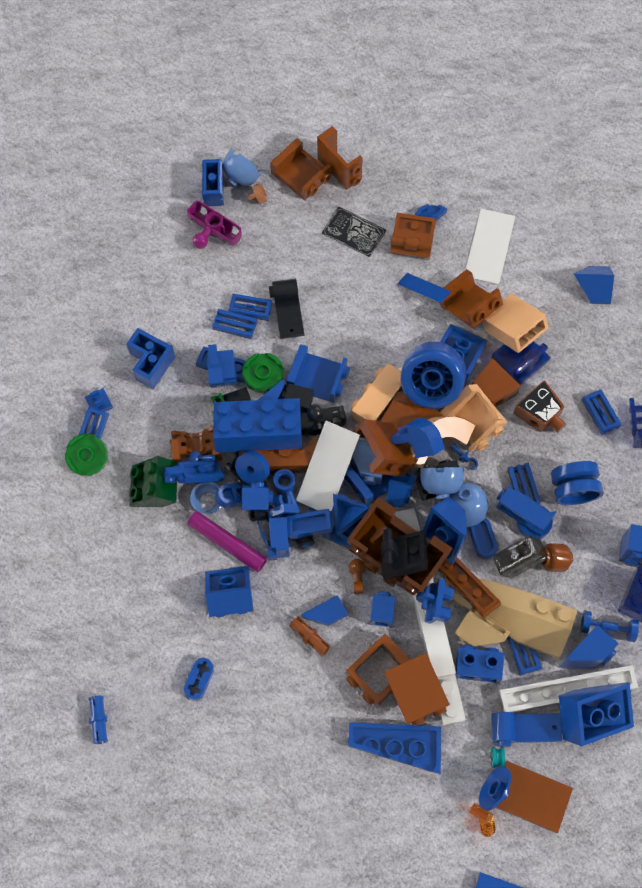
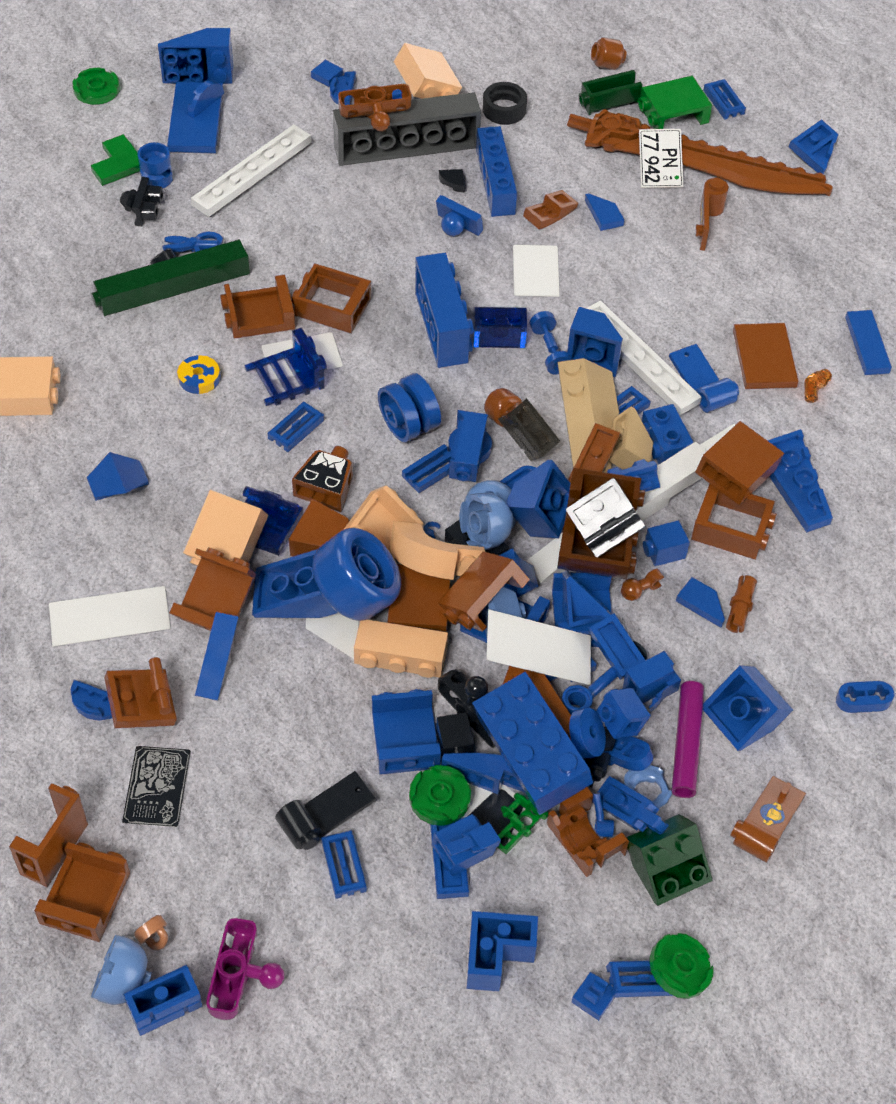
camera: 120 degrees left, 15 degrees down
(148, 561) = (767, 819): none -> door
(238, 317) = (377, 847): blue tile -> none
(283, 507) = (613, 678): blue tile -> none
(423, 436) = (454, 543): blue brick -> none
(495, 788) = (788, 385): blue dish -> none
(497, 757) = (749, 390): teal bush -> none
(595, 712) = (655, 324): blue slope -> none

